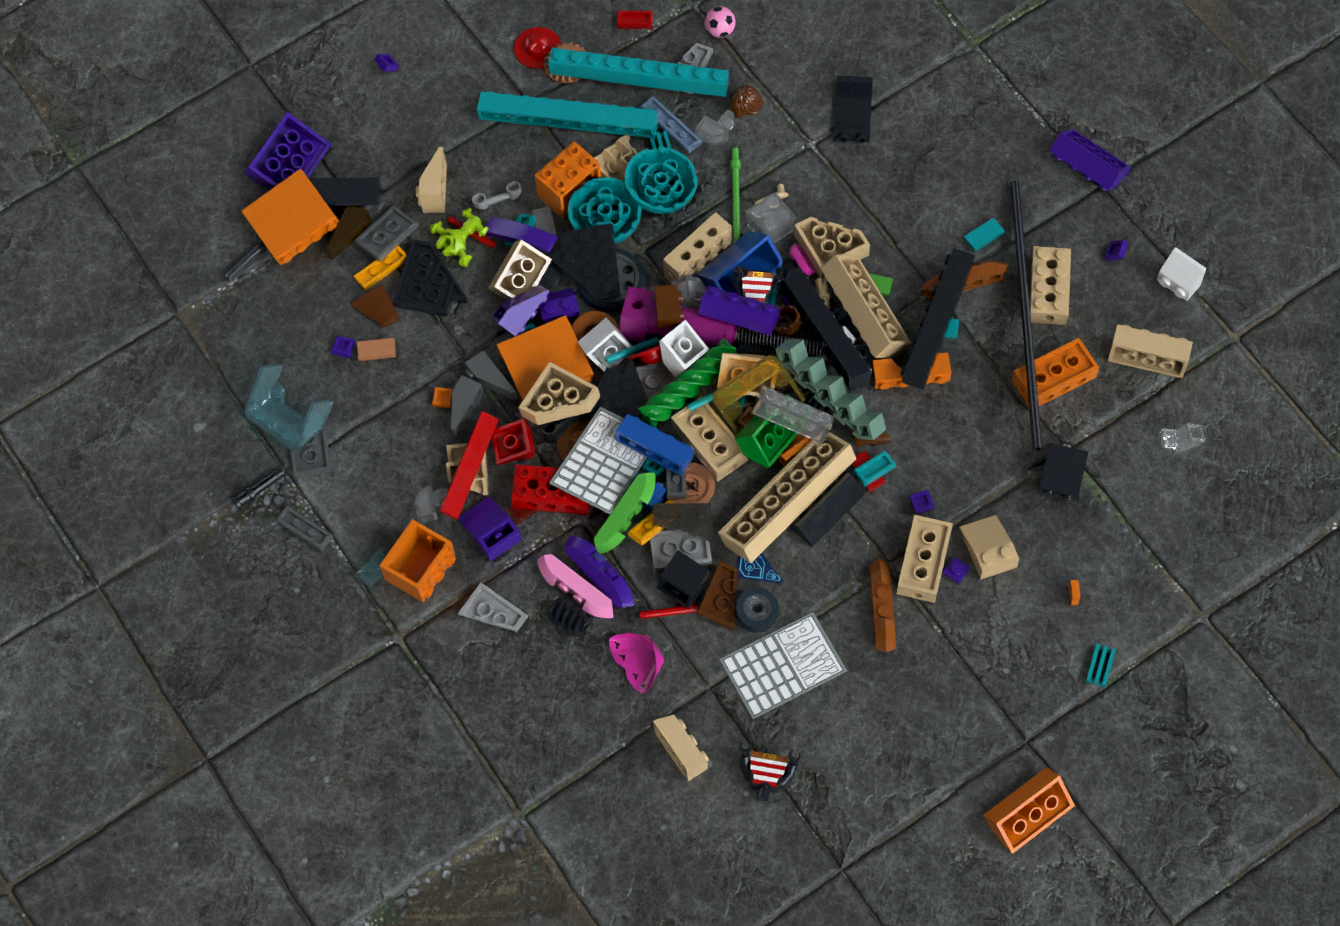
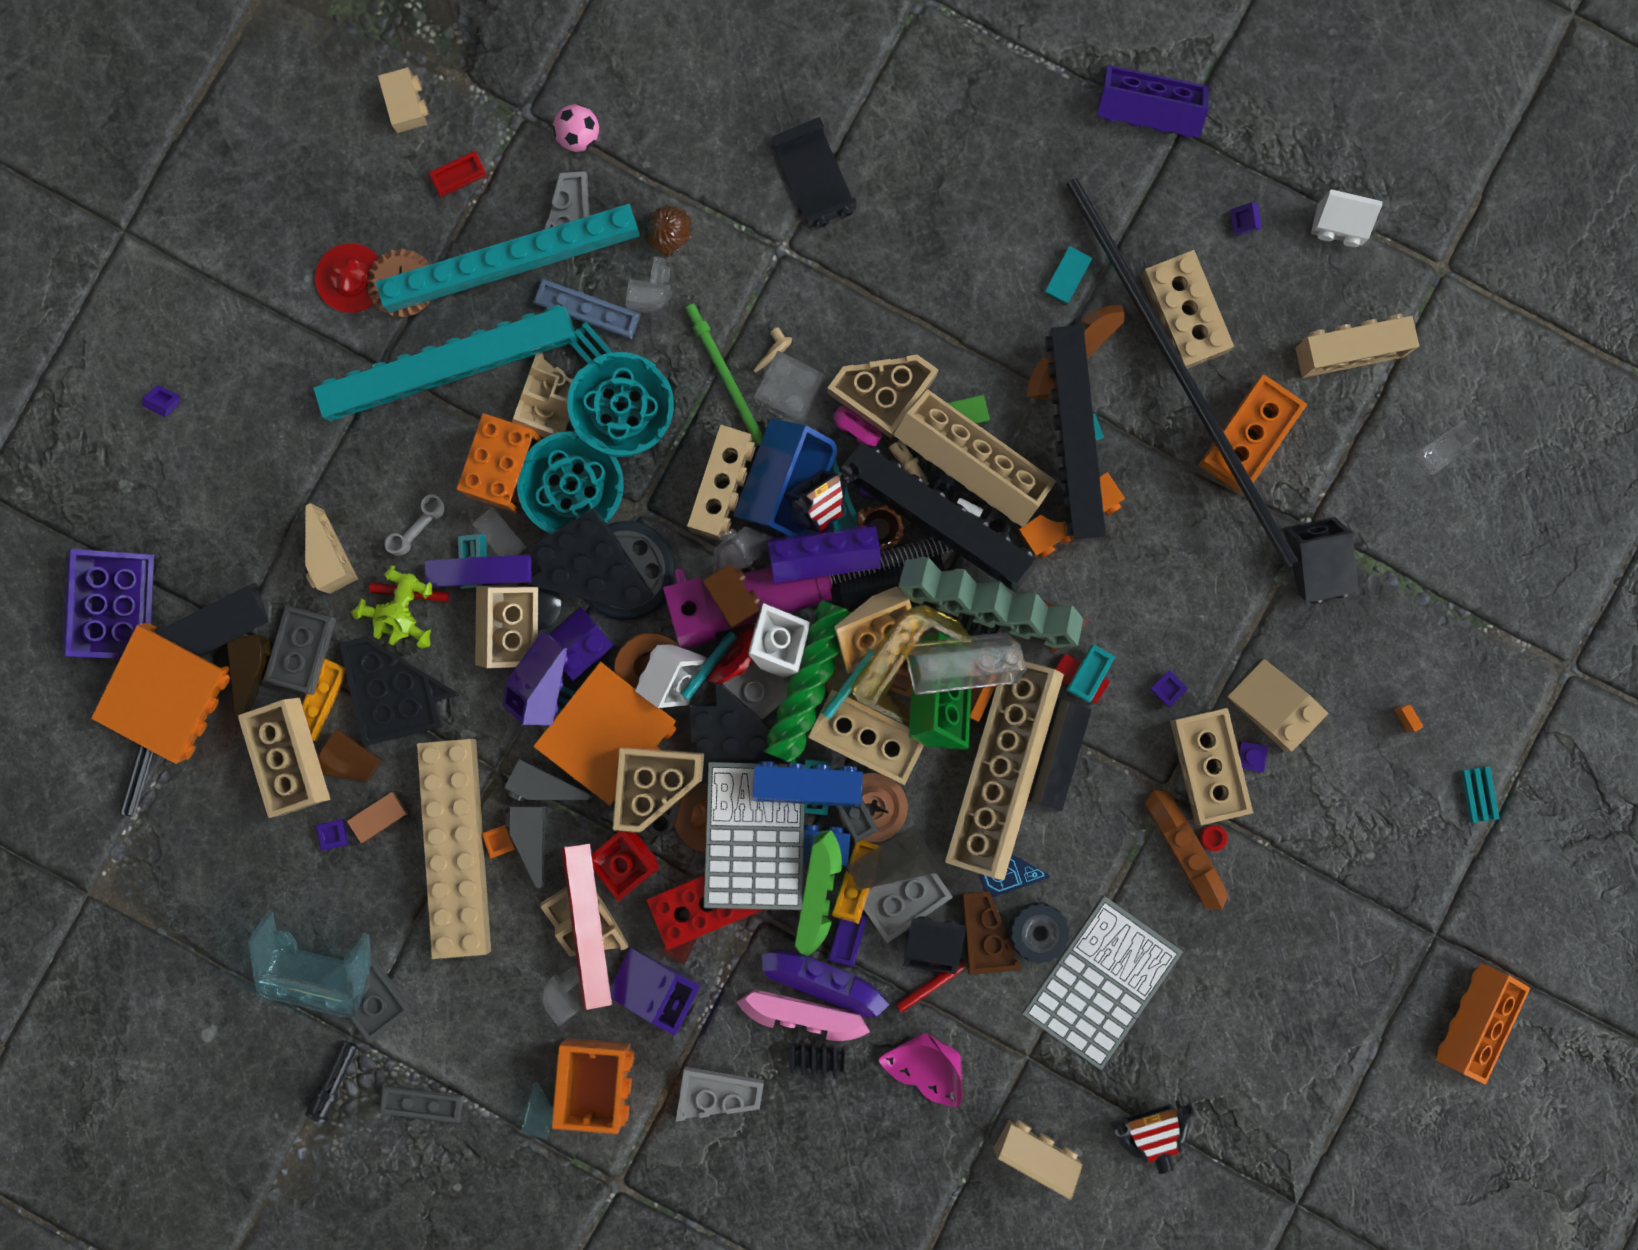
camera: 30 degrees left, 20 degrees up
(341, 285) = (284, 757): none -> tan brick
(413, 386) = (454, 848): none -> tan brick
(630, 558) = (847, 941): none -> dark purple tile
(904, 608) = (1213, 837): none -> red tile

